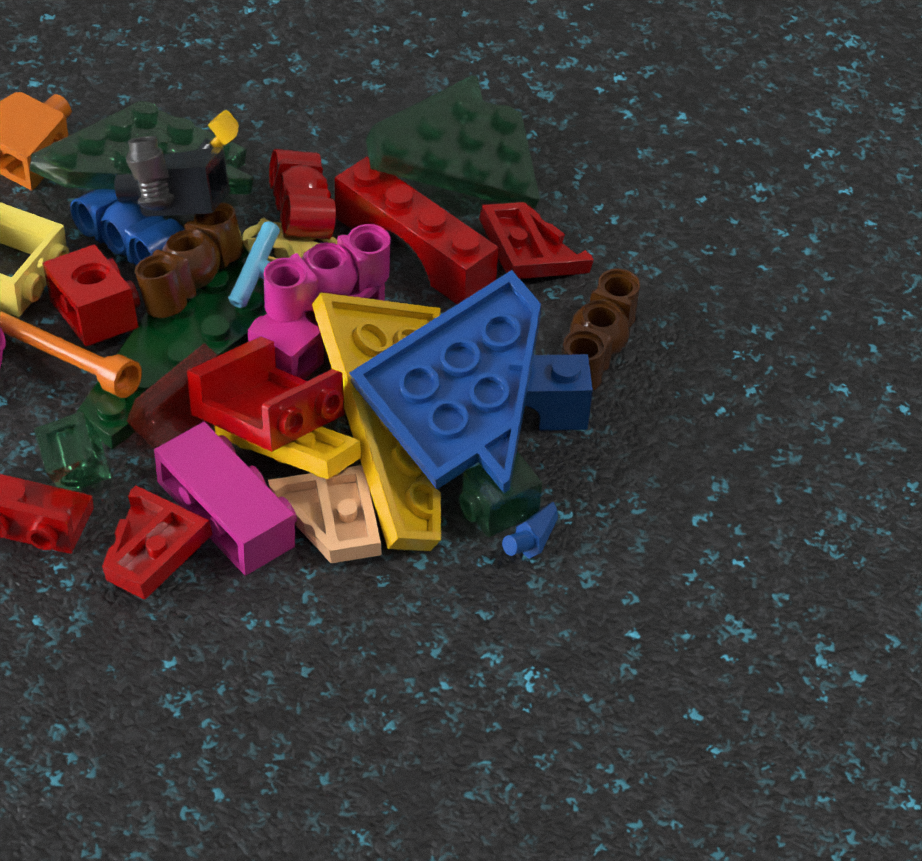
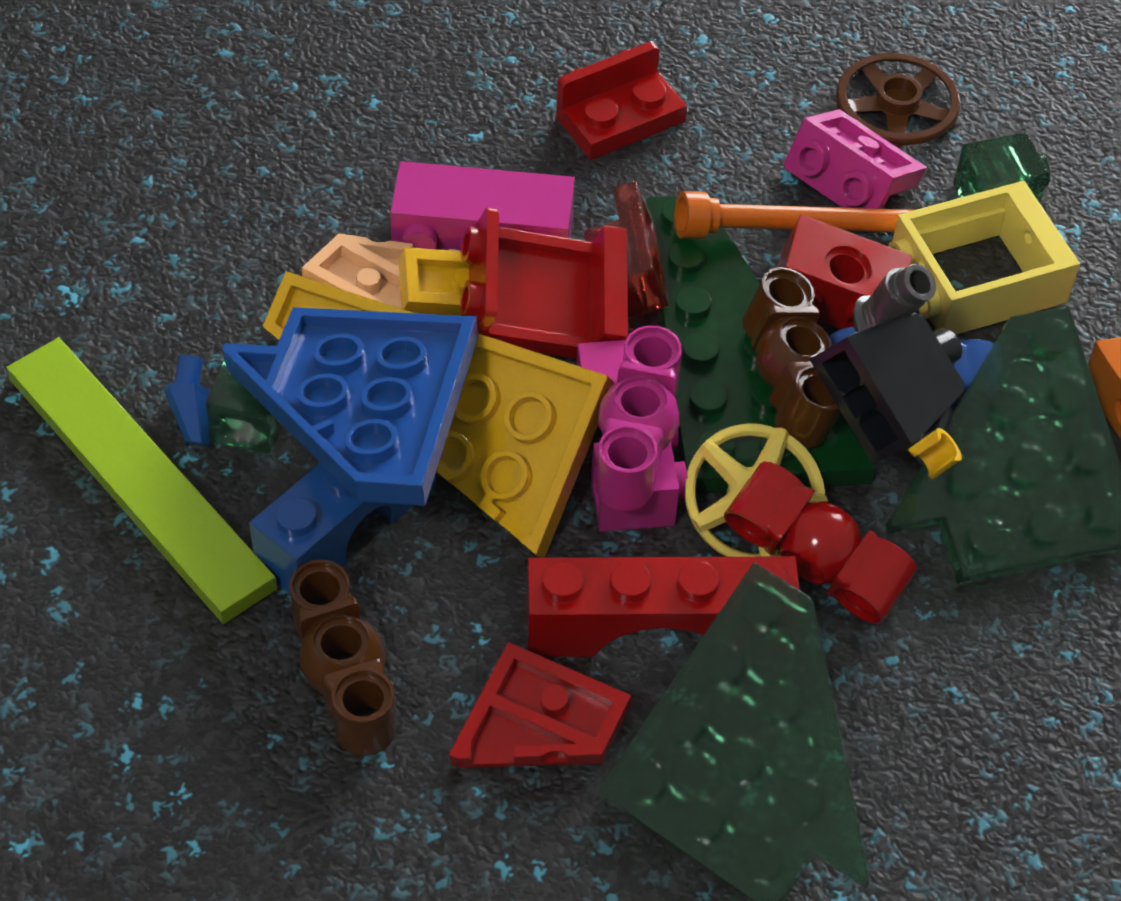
camera: 135 degrees right, 5 degrees up
(72, 452) = (638, 137): clear green brick -> none
(152, 542) = (489, 135): red wing -> none
(254, 264) = (728, 404): medium azure piece -> none
(607, 522) = (142, 480): none -> lime tile

